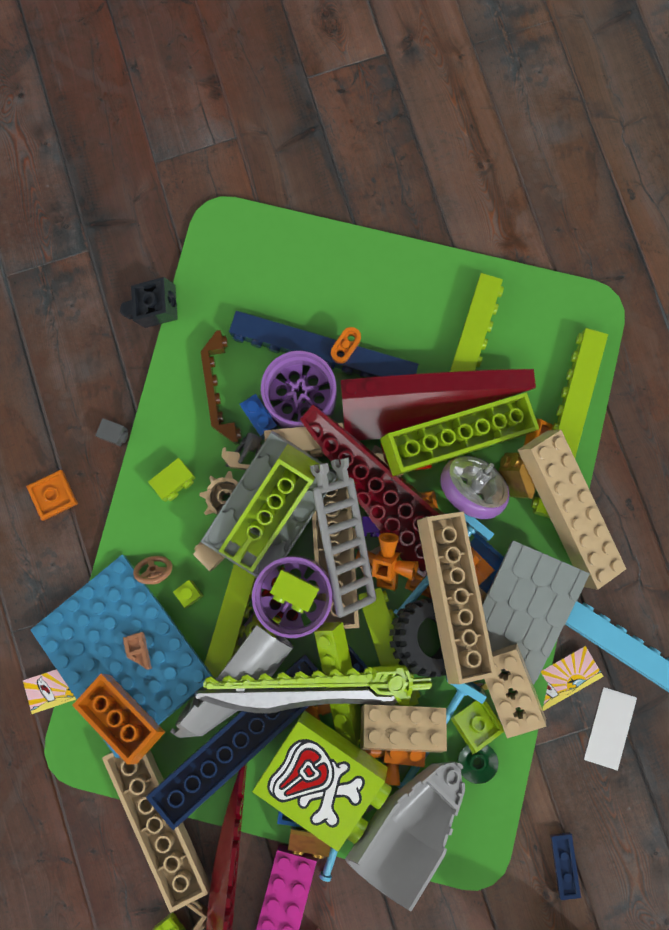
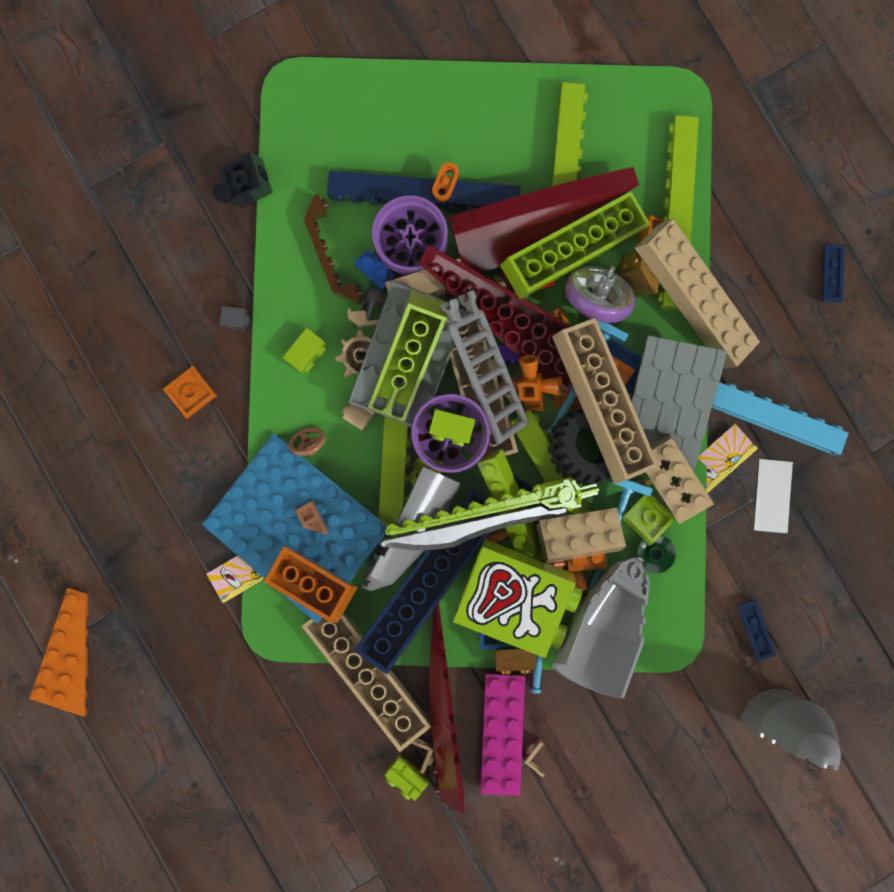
camera: 15 degrees left, 5 degrees up
(188, 593) = (346, 456): lime brick -> none

